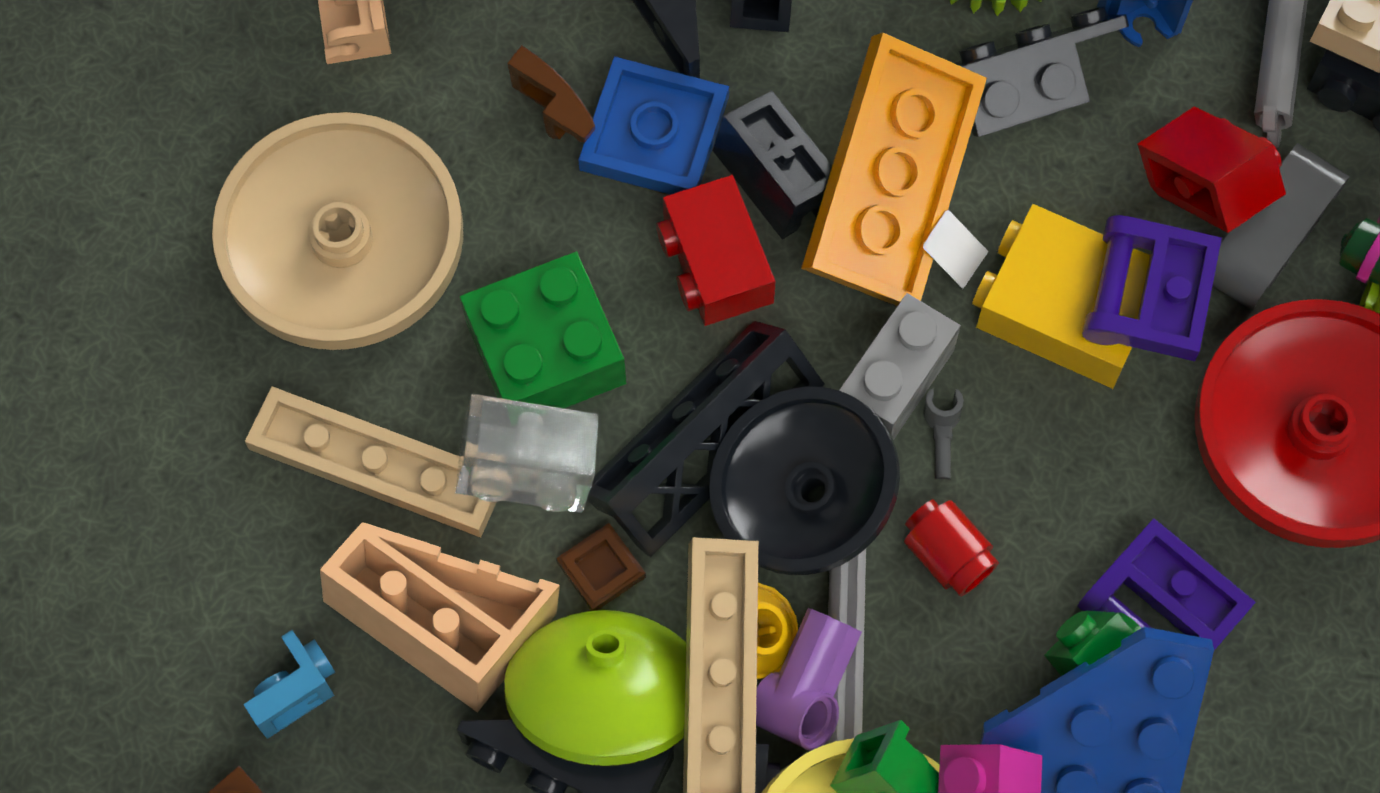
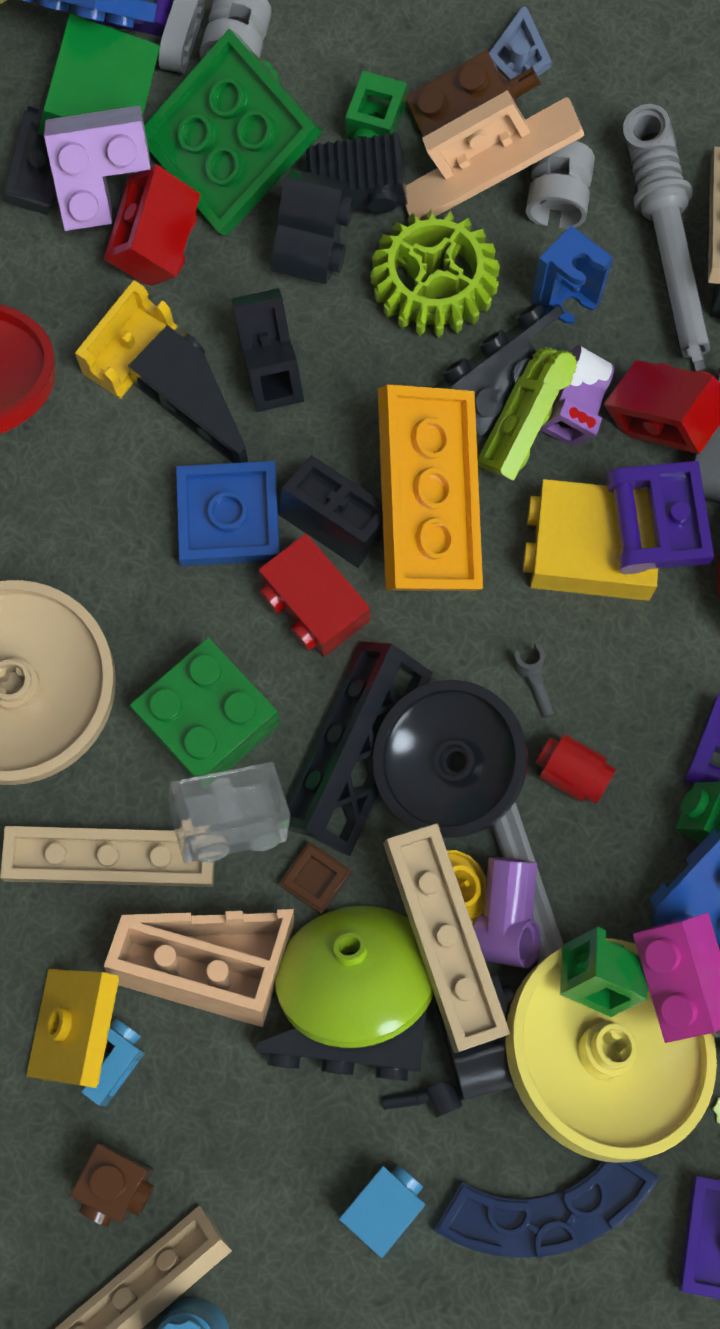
camera: 20 degrees left, 5 degrees up
(262, 630) = (73, 1027): none -> yellow plate
(545, 86) = (127, 507): reddish brown slope -> none
(903, 362) = (488, 638): light grey brick -> none
(955, 248) = (494, 532): white sticker -> none
(1042, 123) = (526, 412): none -> lime hinge
(1109, 127) = (580, 401): none -> medium lavender leg

